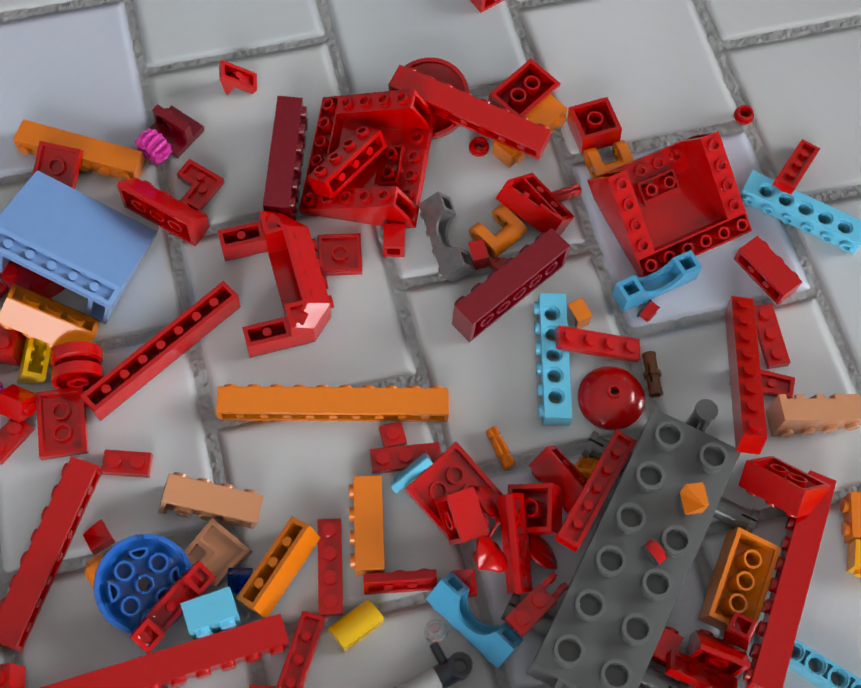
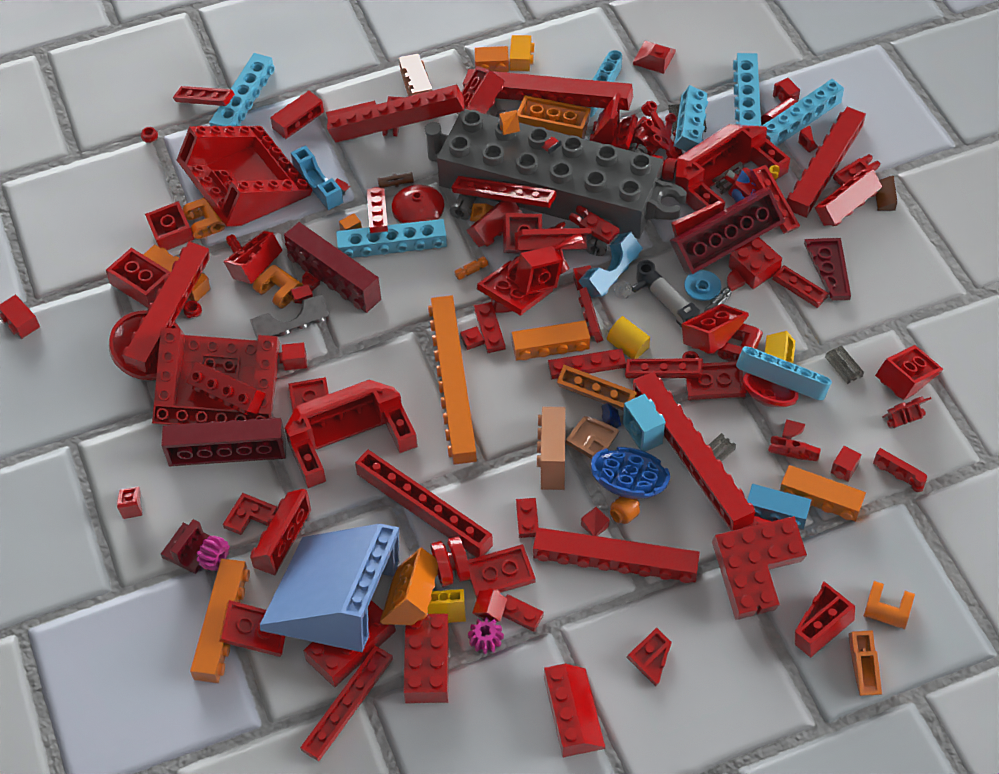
camera: 90 degrees left, 10 degrees down
(168, 607) = (621, 442): red slope -> none
(411, 472) = (504, 314): medium azure tile -> none
(740, 631) = (590, 110): red slope -> none

